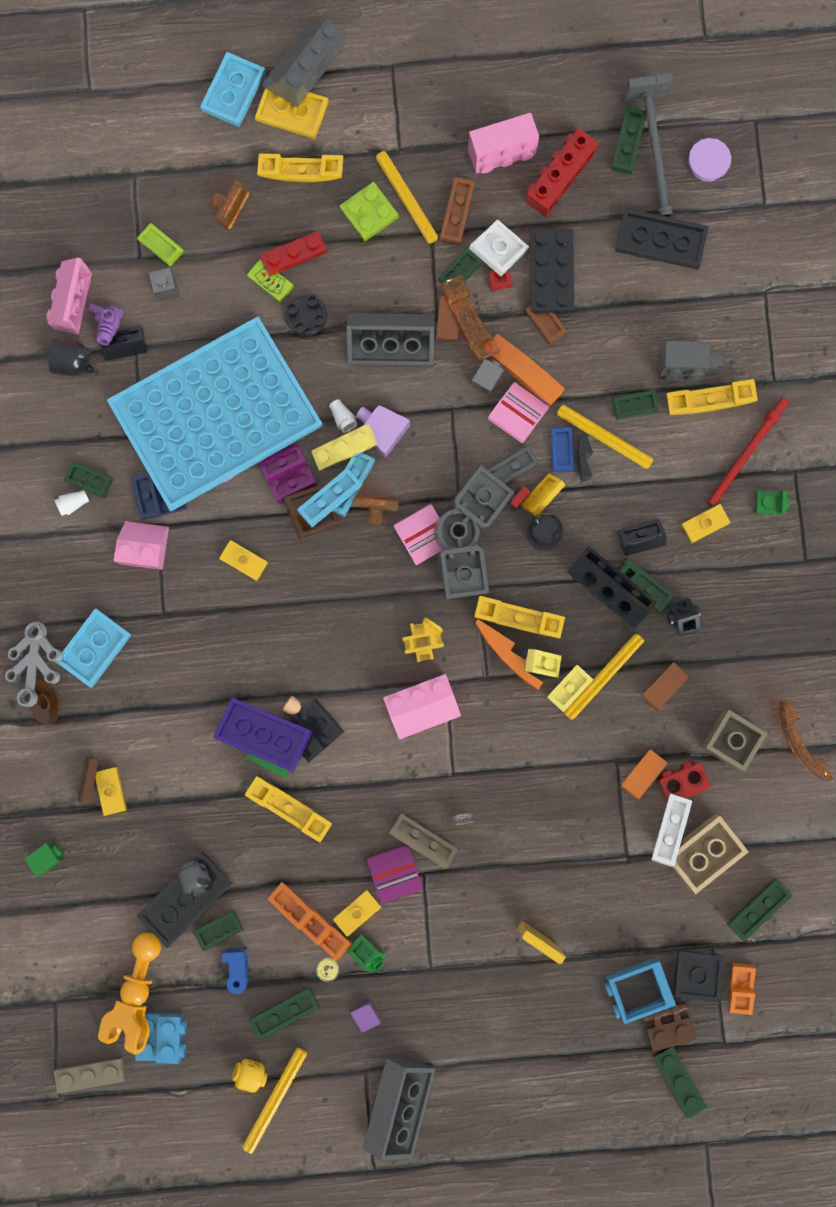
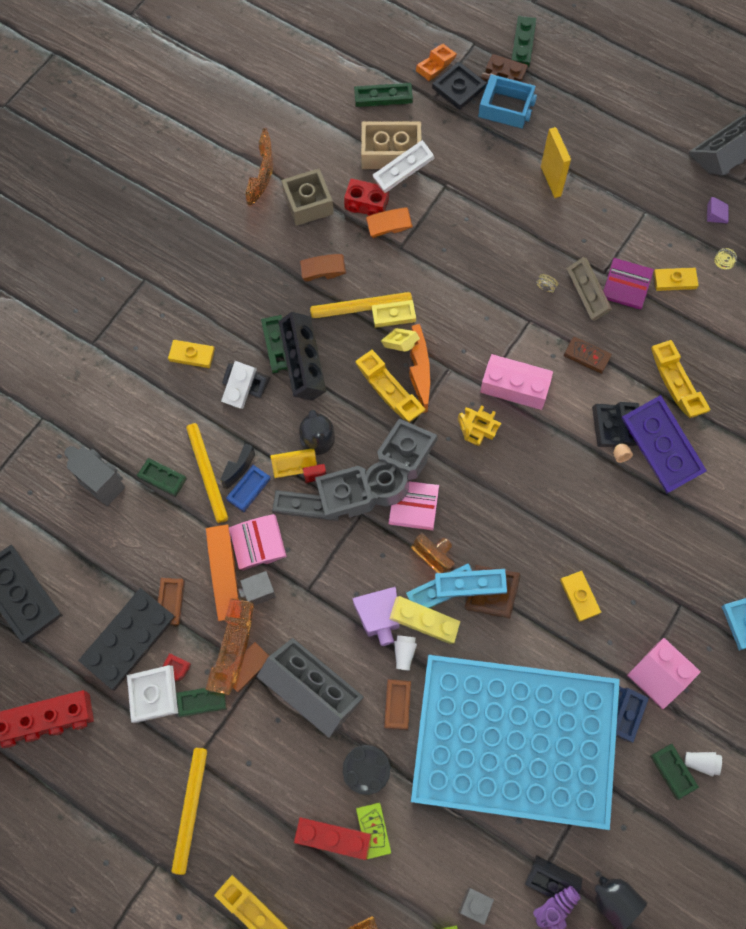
camera: 145 degrees left, 15 degrees down
(287, 473) = (489, 639): magenta slope -> none
(310, 921) = (717, 298): orange slope -> none
(319, 377) = (397, 704): none -> dark orange tile
(366, 954) = (689, 247): green bracket -> none
(369, 211) = (233, 825): lime plate -> none
(381, 777) = (587, 355): none -> reddish brown tile
(457, 210) = (157, 758): dark orange plate -> none
(503, 143) = (66, 782): bright pink brick -> none
(641, 524) = (239, 384): none -> white plate
(684, 617) = (267, 298): black brick -> none
(712, 398) = (99, 436): yellow slope -> none
(771, 419) = (72, 390): red bar -> none
(771, 502) = (130, 331): green bracket -> none

